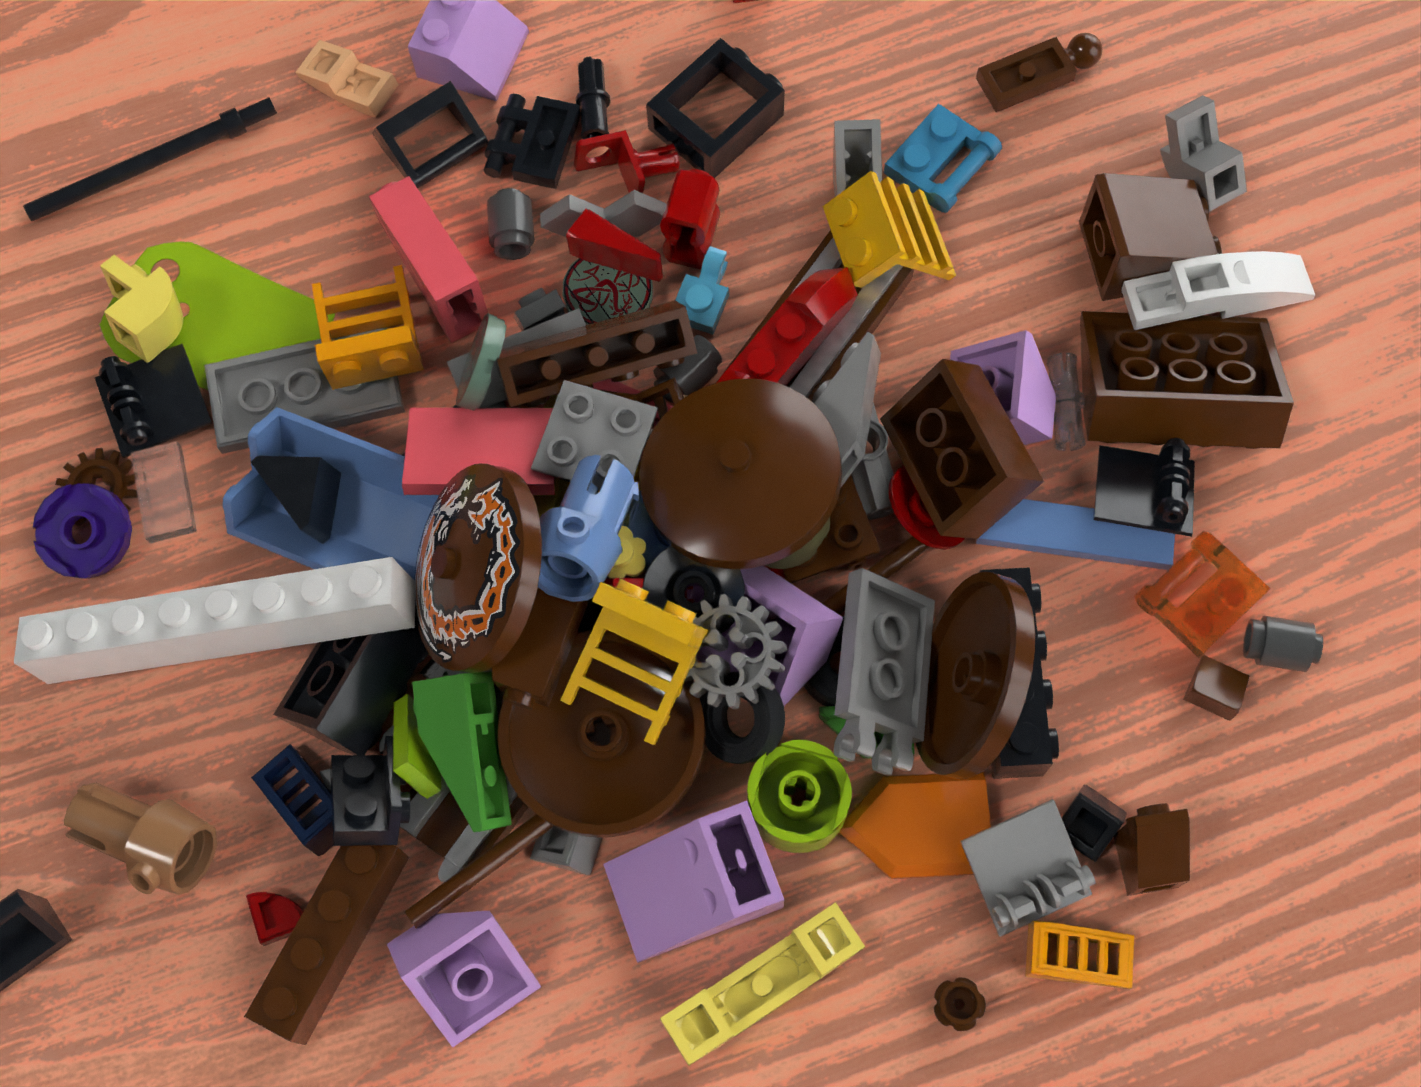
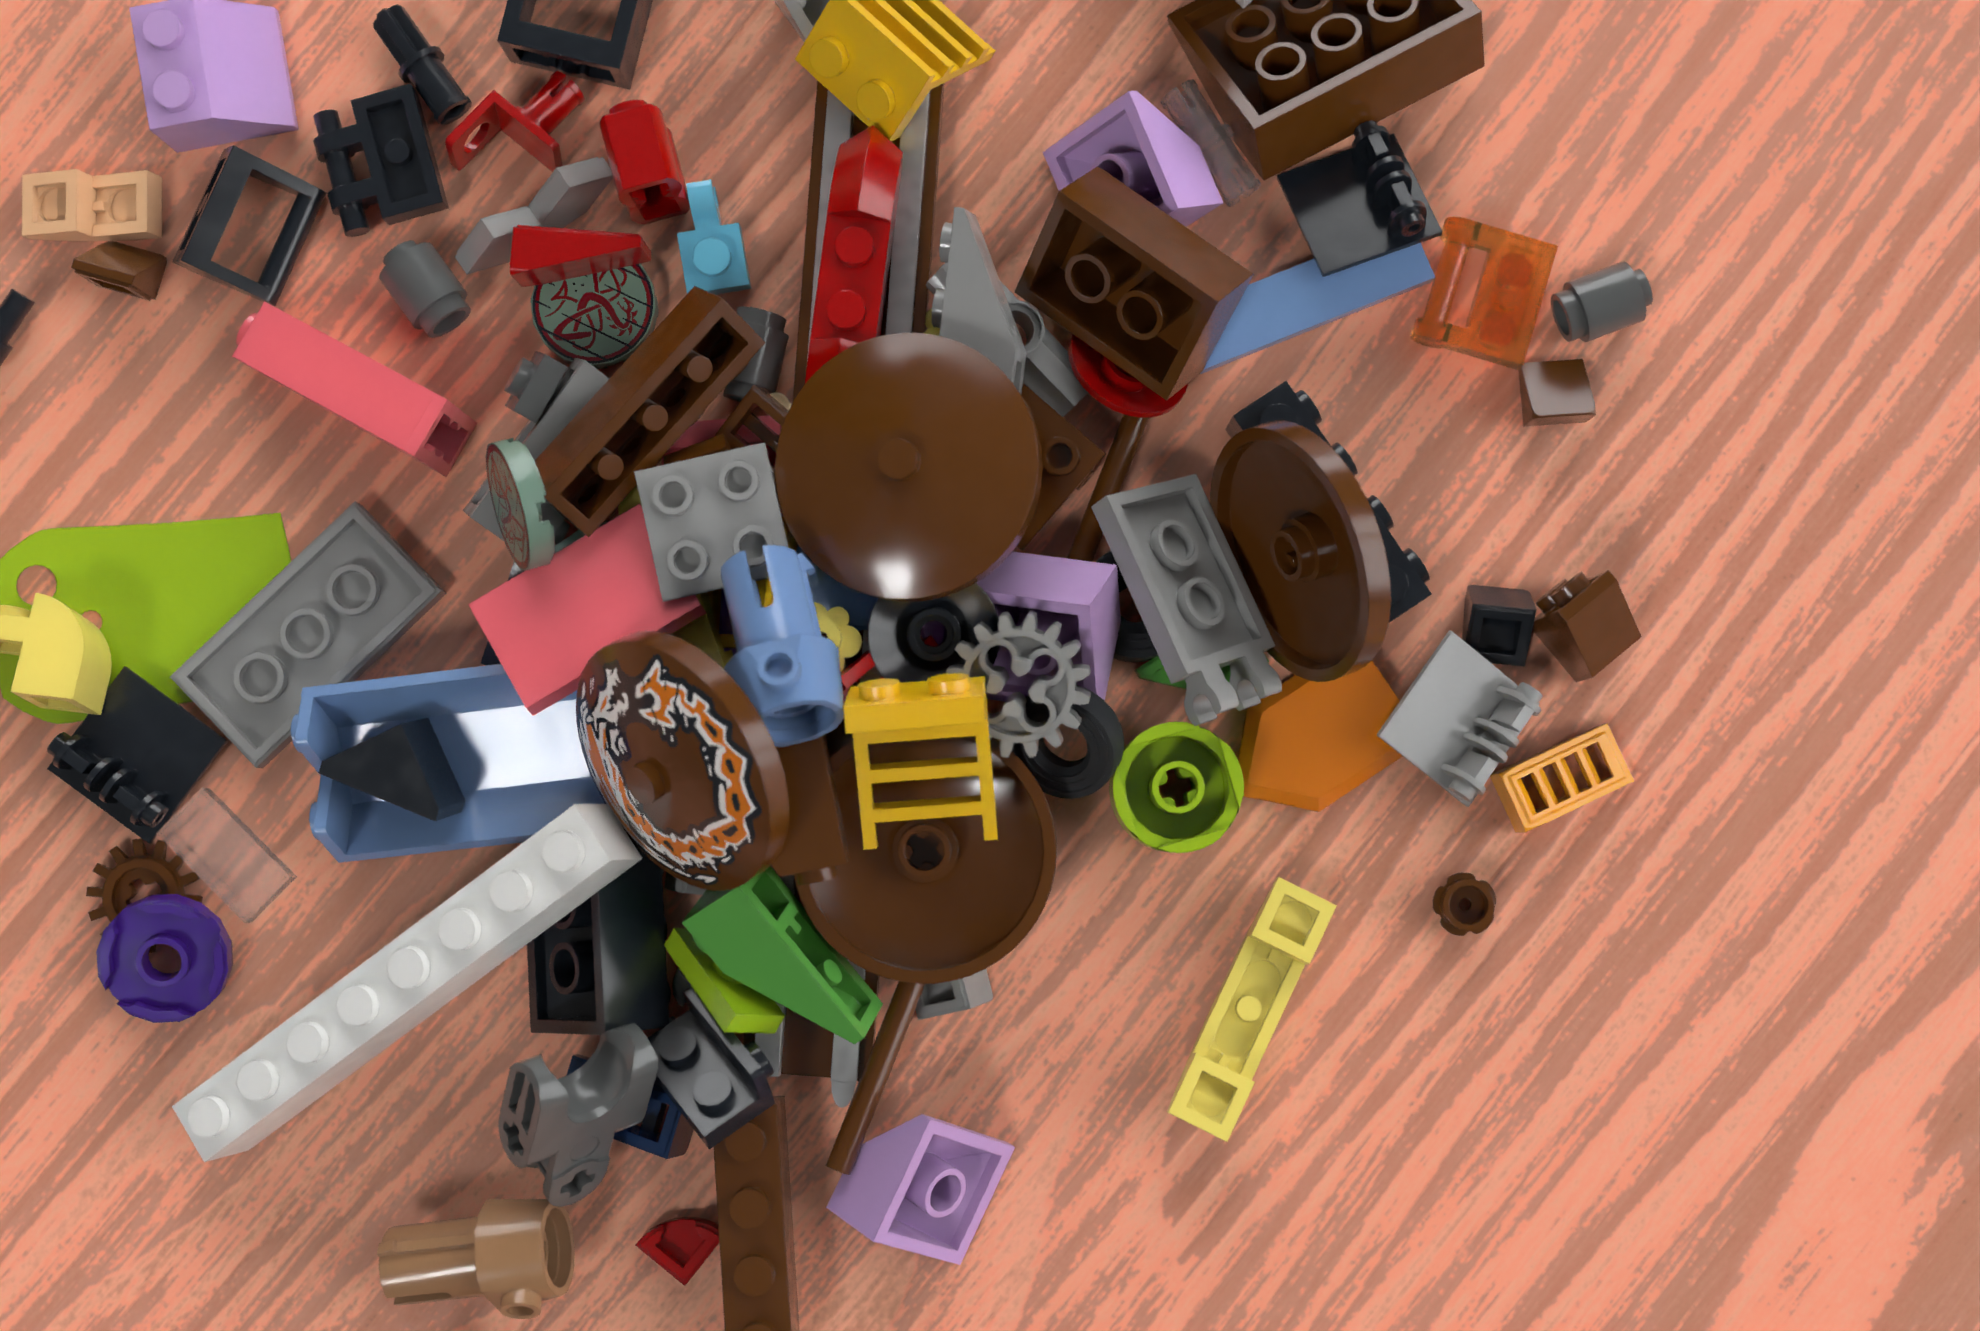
camera: 30 degrees left, 15 degrees up
(256, 774) = (572, 1120): none -> dark grey piece
(339, 121) = (122, 269): none -> reddish brown slope
(372, 354) = (370, 555): light orange plate -> none
(694, 882) = (1116, 946): lavender slope -> none

